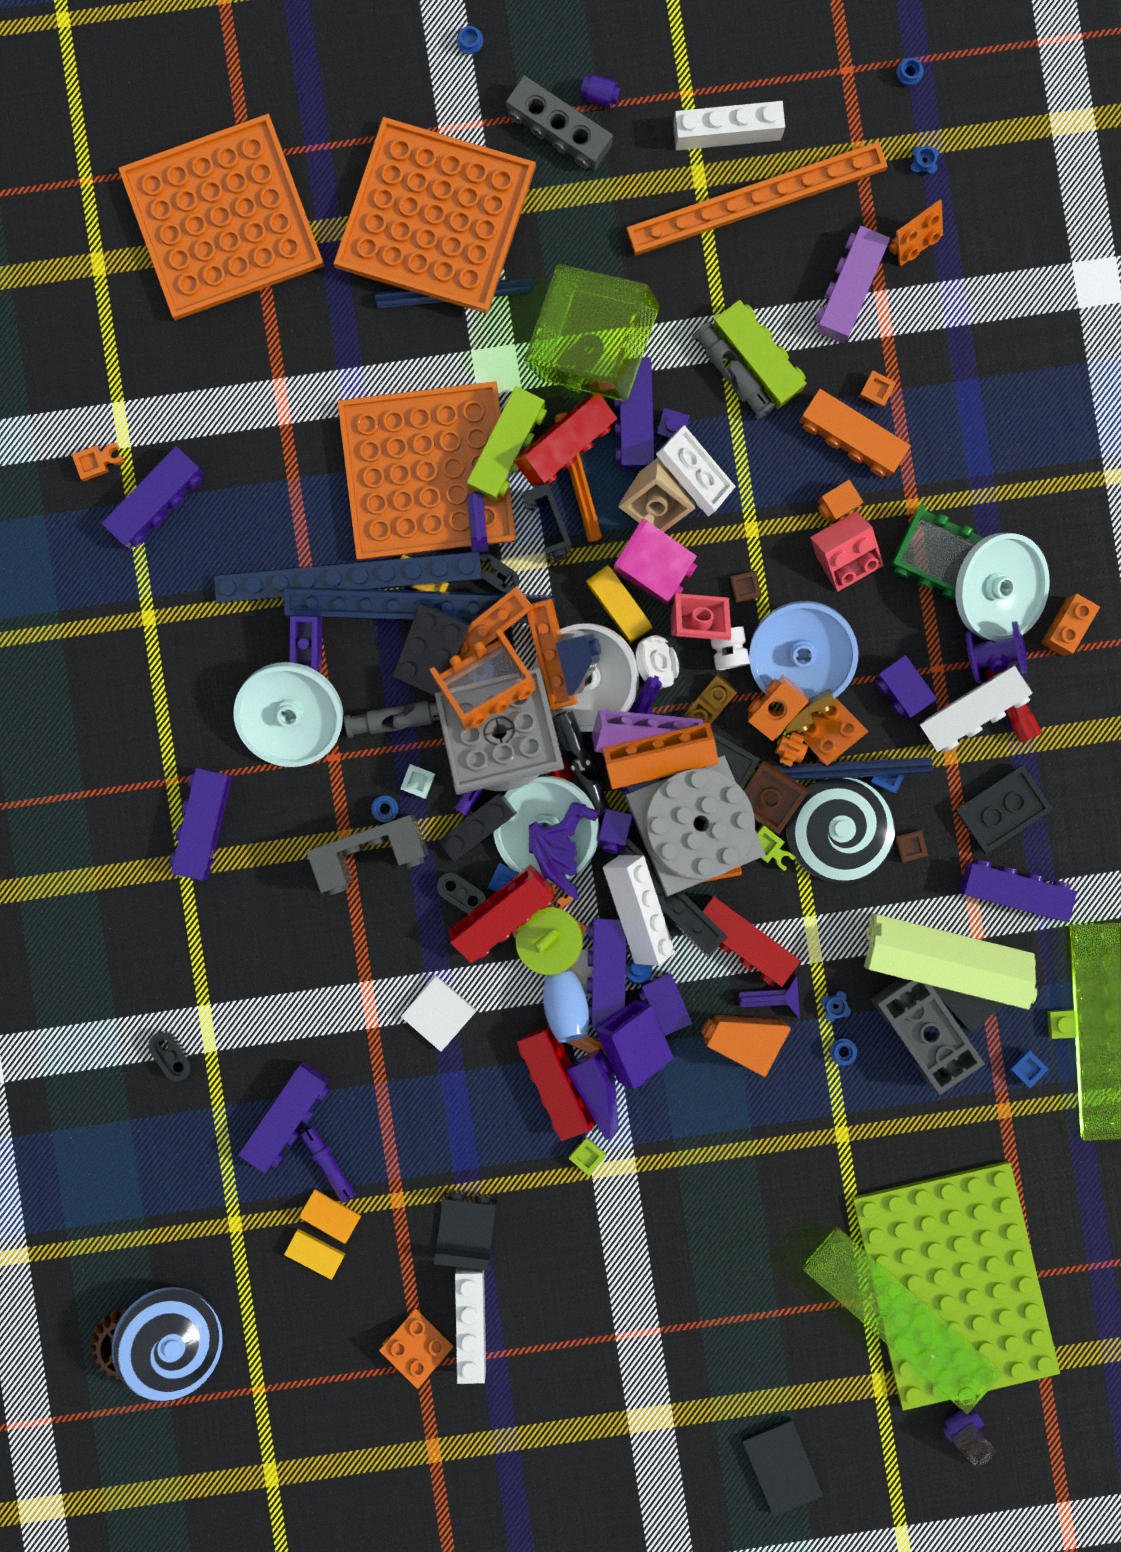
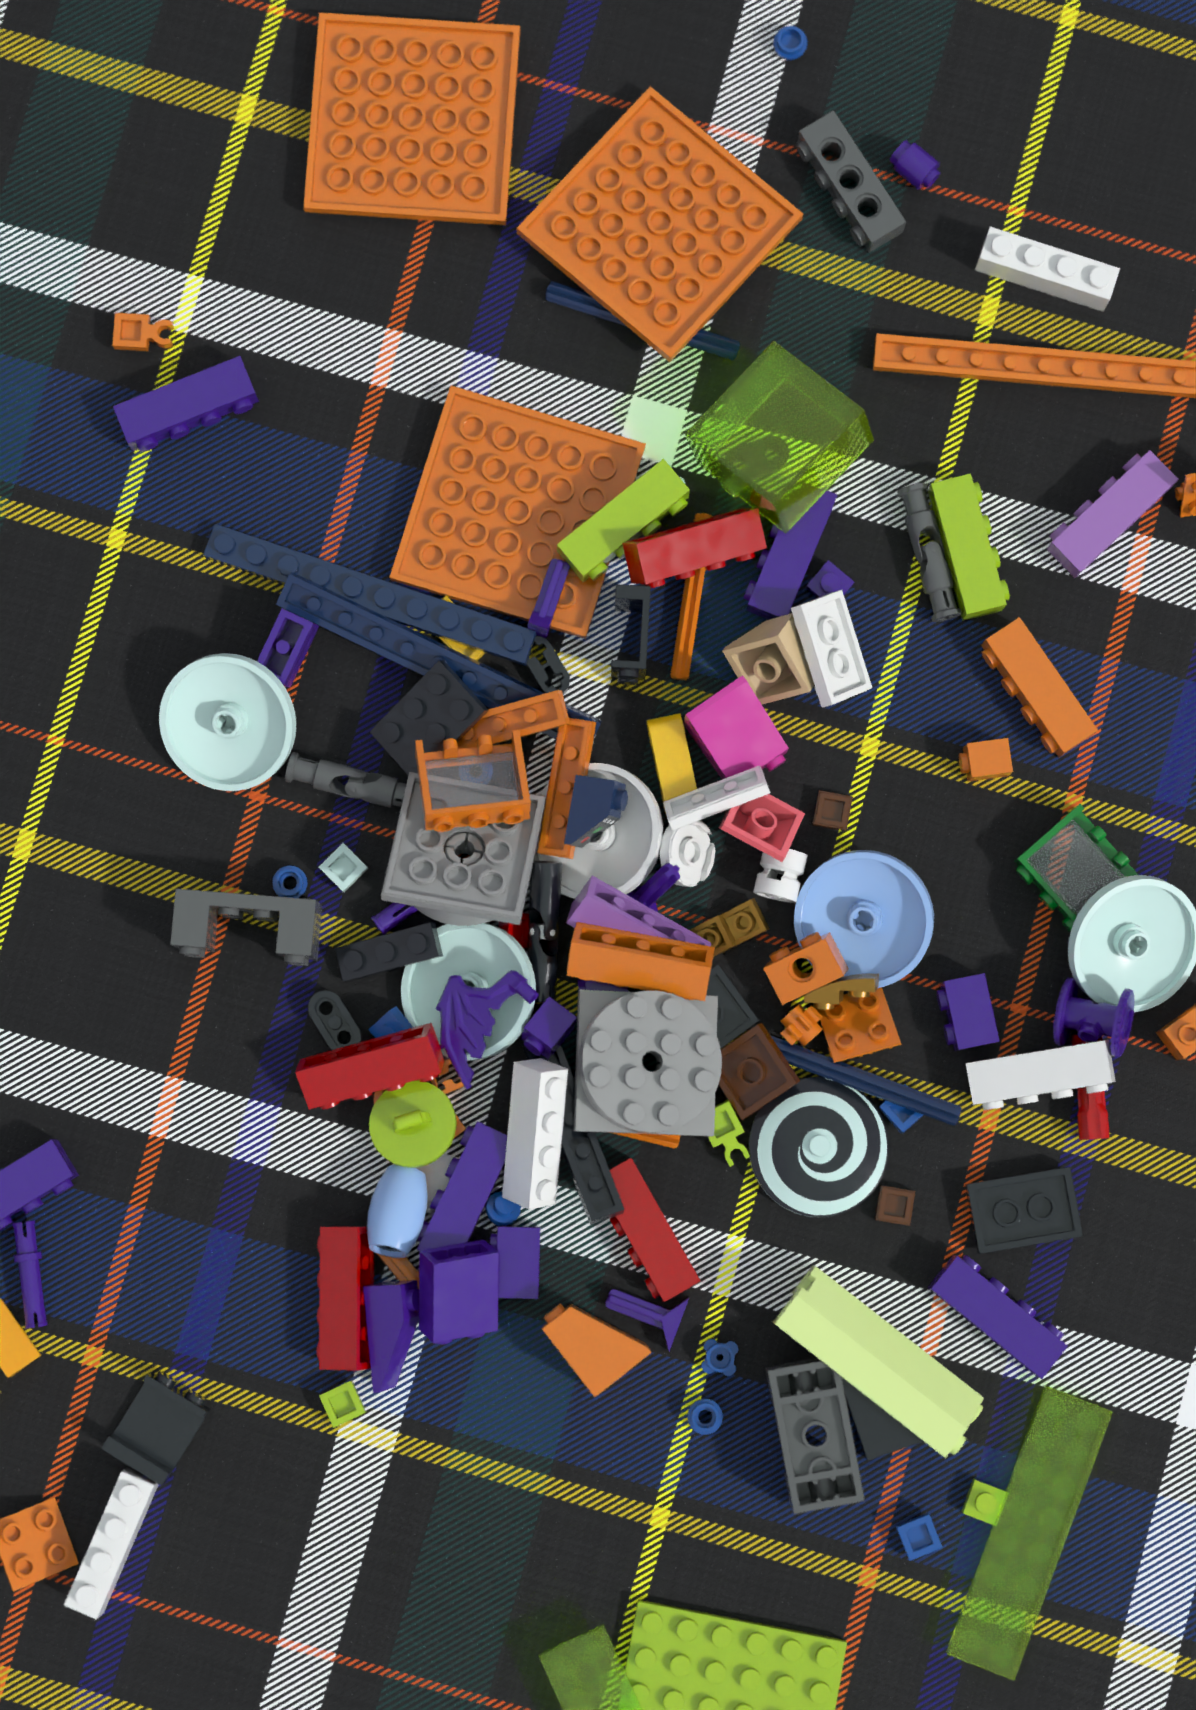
camera: 25 degrees right, 5 degrees down
(201, 824) = (67, 804): dark purple brick -> none
(438, 1013) = (243, 1153): white tile -> none
(662, 614) = (716, 797): none -> white tile
(847, 550) = (971, 821): coral slope -> none
(877, 389) = (1089, 648): orange plate -> none

